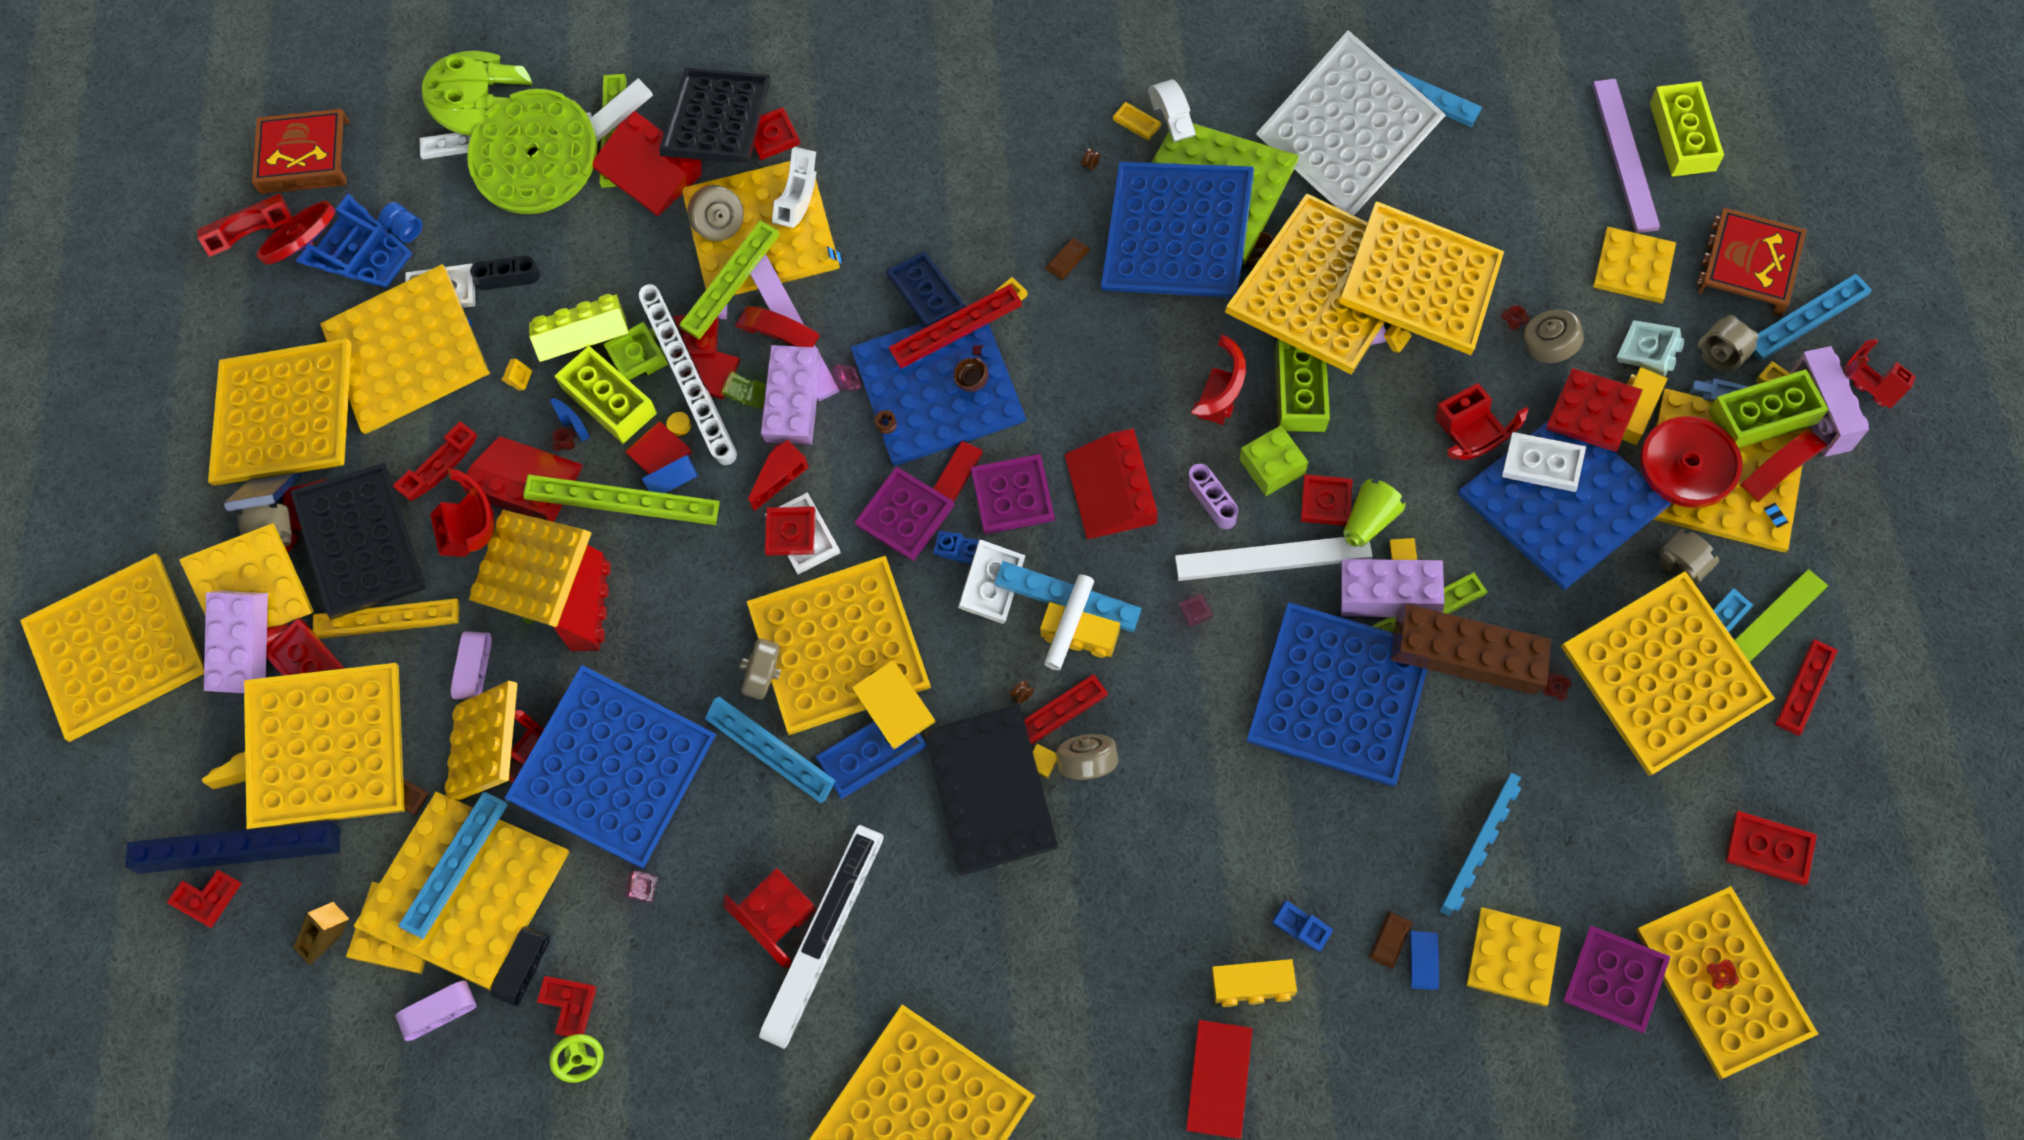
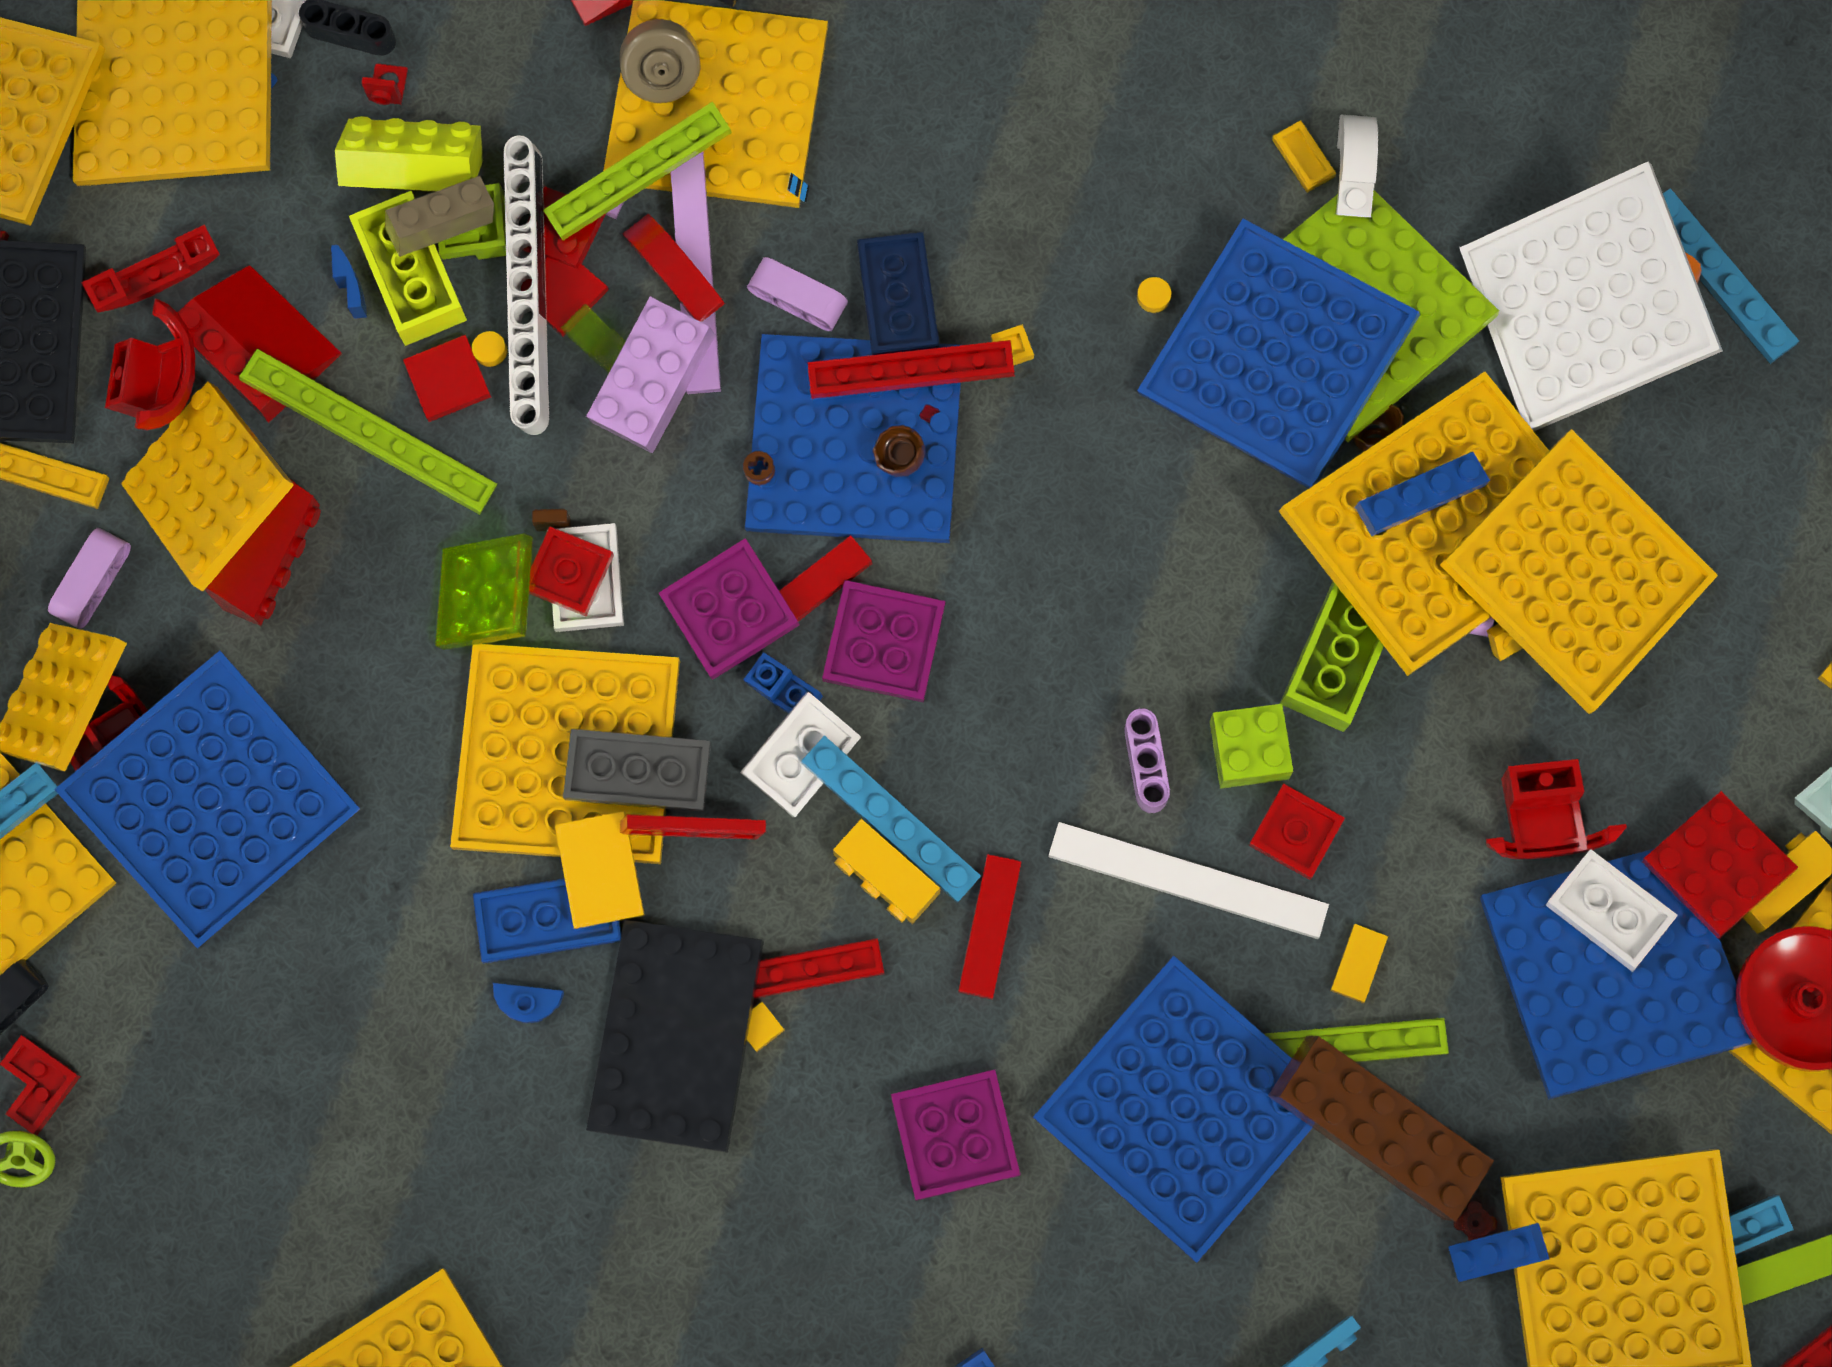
camera: 20 degrees right, 10 degrees up
(517, 374) = (305, 186): yellow tile -> none
(544, 297) = (382, 90): none -> red bracket
(561, 434) = (326, 298): clear red plate -> none
(614, 350) = (439, 216): none -> dark tan brick
(641, 886) = (185, 971): clear pink plate -> none
(671, 476) = (446, 423): blue slope -> none
(741, 565) = (484, 592): none -> clear neon green plate
(760, 506) = (546, 518): none -> reddish brown tile
(760, 668) = (449, 747): dark tan wheel -> none
(770, 749) = (419, 859): dark azure plate -> none
(772, 912) = (331, 1079): red piece -> none
(779, 470) = (590, 475): red slope -> none
(795, 199) = (784, 76): white arch -> none
(821, 937) = (382, 1134): white beam -> none
(846, 377) = (736, 378): clear pink plate -> none
(862, 314) = (797, 294): none -> lavender beam
(881, 811) = (526, 1003): none -> blue plate
(890, 632) = (637, 770): none -> dark grey plate
(942, 651) = (692, 827): none -> red tile
(1021, 692) = (773, 923): reddish brown bush -> none
(1067, 258) = (1113, 325): reddish brown tile -> none
(1069, 622) = (872, 860): white piece -> none
(1084, 231) = (1154, 294): none -> yellow tile
(1087, 756) = (816, 1049): dark tan wheel -> none
(1091, 159) = (1211, 190): reddish brown bush -> none
(1111, 485) = (1019, 685): red slope -> none
(1162, 637) = (989, 927): none -> red tile
(1195, 610) = (1050, 910): clear pink plate -> none
(1202, 773) = (955, 1135): none -> magenta plate
(1222, 386) = (1227, 614): red piece -> none
(1306, 269) = (1422, 493): none -> blue plate
(1372, 511) = (1343, 881): lime cone -> none
(1386, 586) = (1320, 996): lavender brick -> none
(1516, 310) = (1692, 670): clear red plate -> none
(1553, 336) = (1720, 732): dark tan wheel -> none
(1583, 692) = (1498, 1252): none -> blue plate
(1688, 554) = (1737, 1128): dark tan brick -> none

